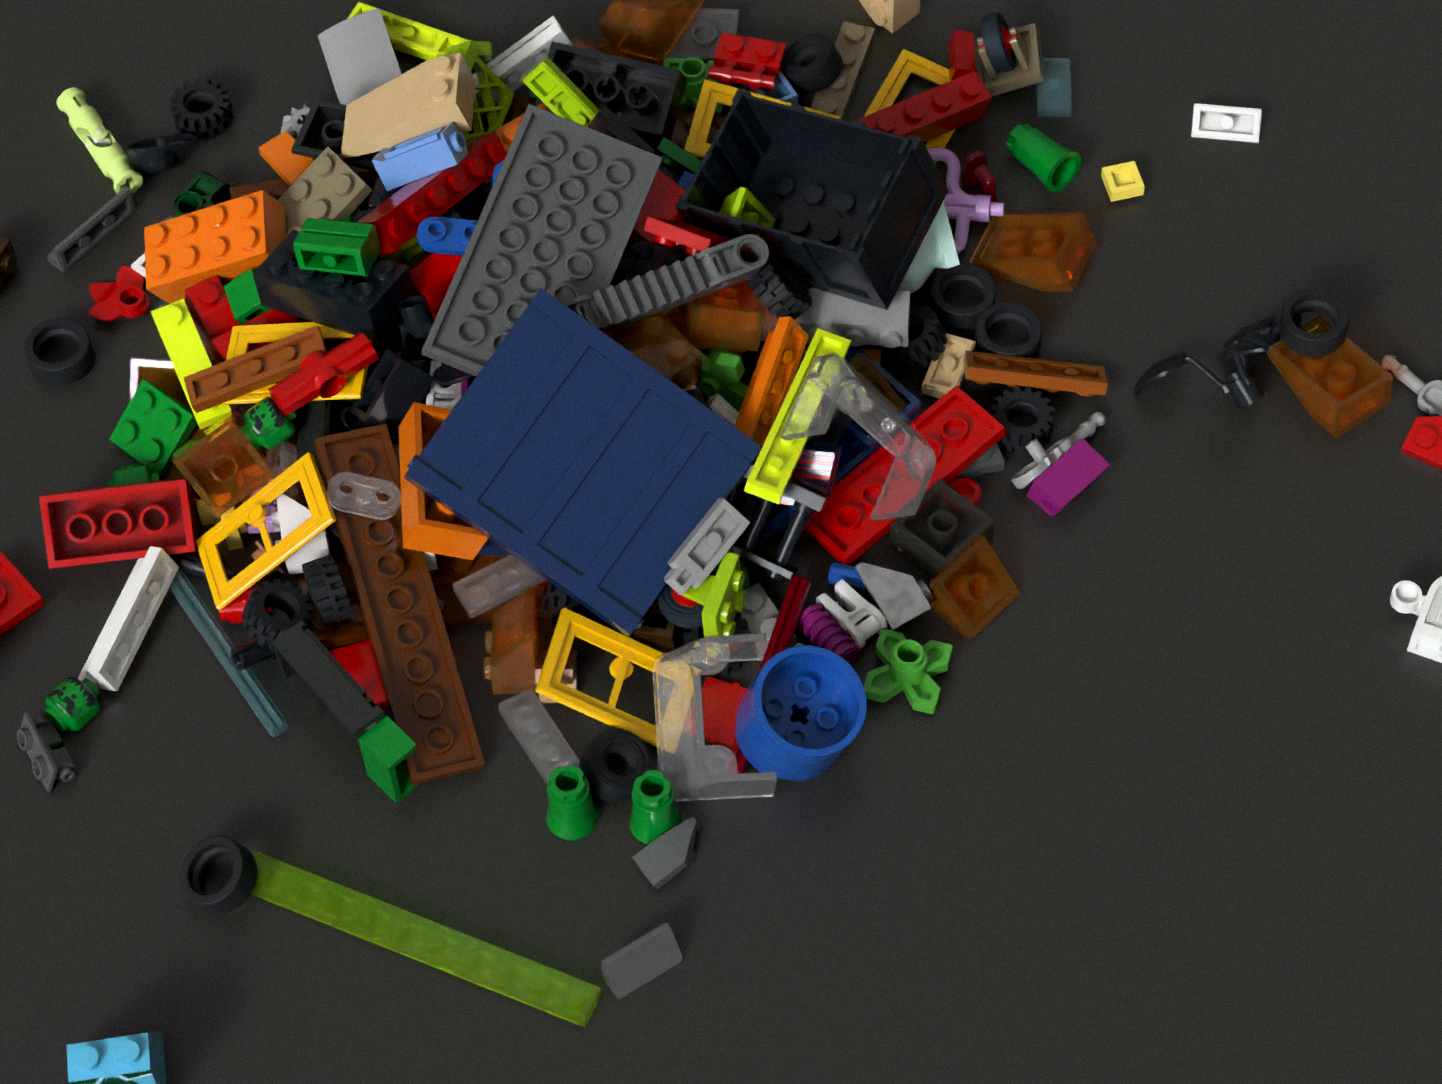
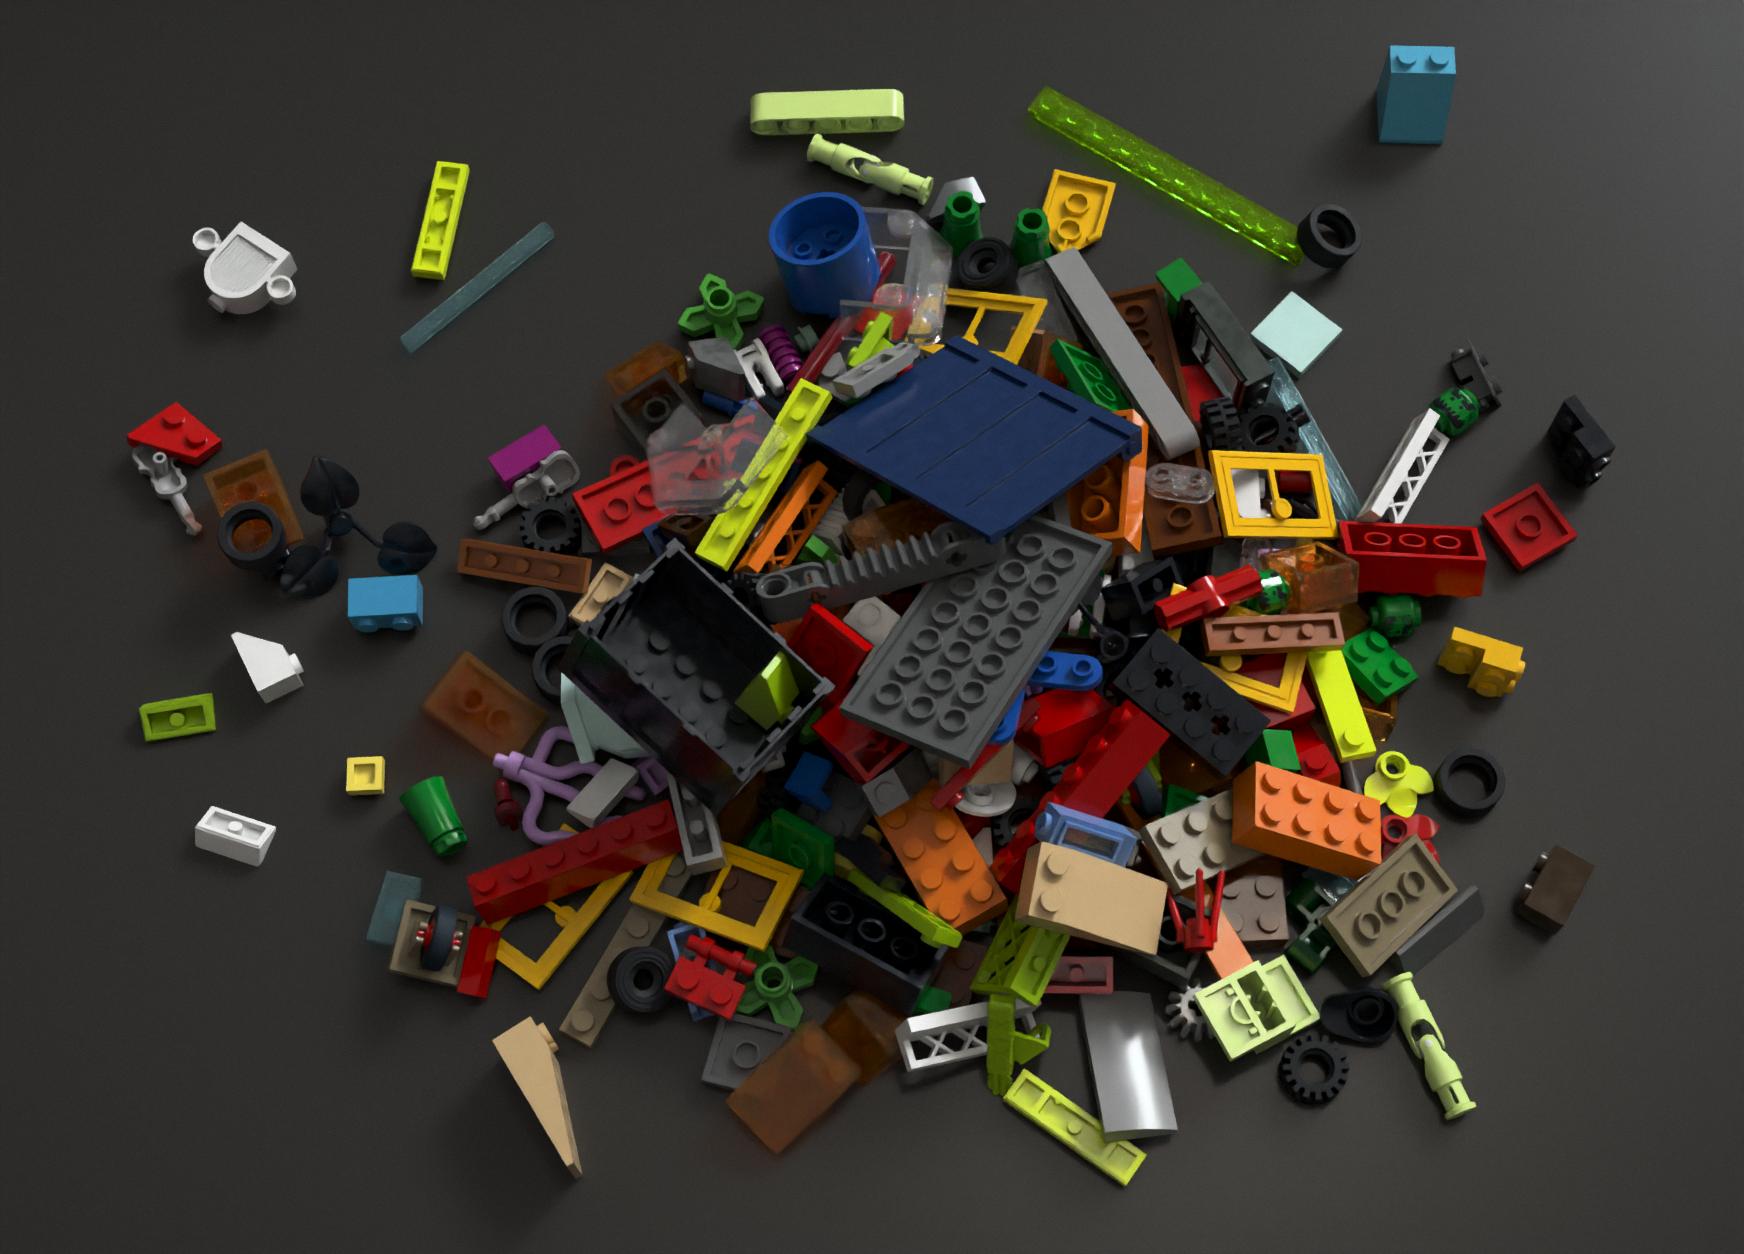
camera: 170 degrees left, 10 degrees up
(45, 443) = (1490, 662): none -> yellow plate
(120, 241) = (1388, 905): none -> dark tan plate
(129, 341) = (1399, 789): none -> neon yellow plate
(251, 118) = (1256, 1007): none -> yellowish green bracket
(253, 769) = (1295, 334): none -> light aqua tile
(309, 122) = (1198, 933): none -> red plant
(337, 246) = (1183, 701): green brick -> none
(448, 666) = (1122, 354): none -> light grey beam
(468, 598) = (1088, 377): none -> green plate
(524, 871) = (1076, 209): none -> yellow tile
(641, 961) = (994, 125): dark grey slope -> none
(799, 875) = (886, 175): none -> yellowish green piece
(847, 934) = (826, 112): none -> yellowish green beam
(1162, 317) = (385, 603): none -> dark azure brick
(1192, 659) = (477, 287): none -> clear light blue axle
(1257, 251) = (269, 666): none -> white slope
(1264, 723) = (440, 220): none -> neon yellow plate
(1325, 206) = (178, 717): none -> lime slope

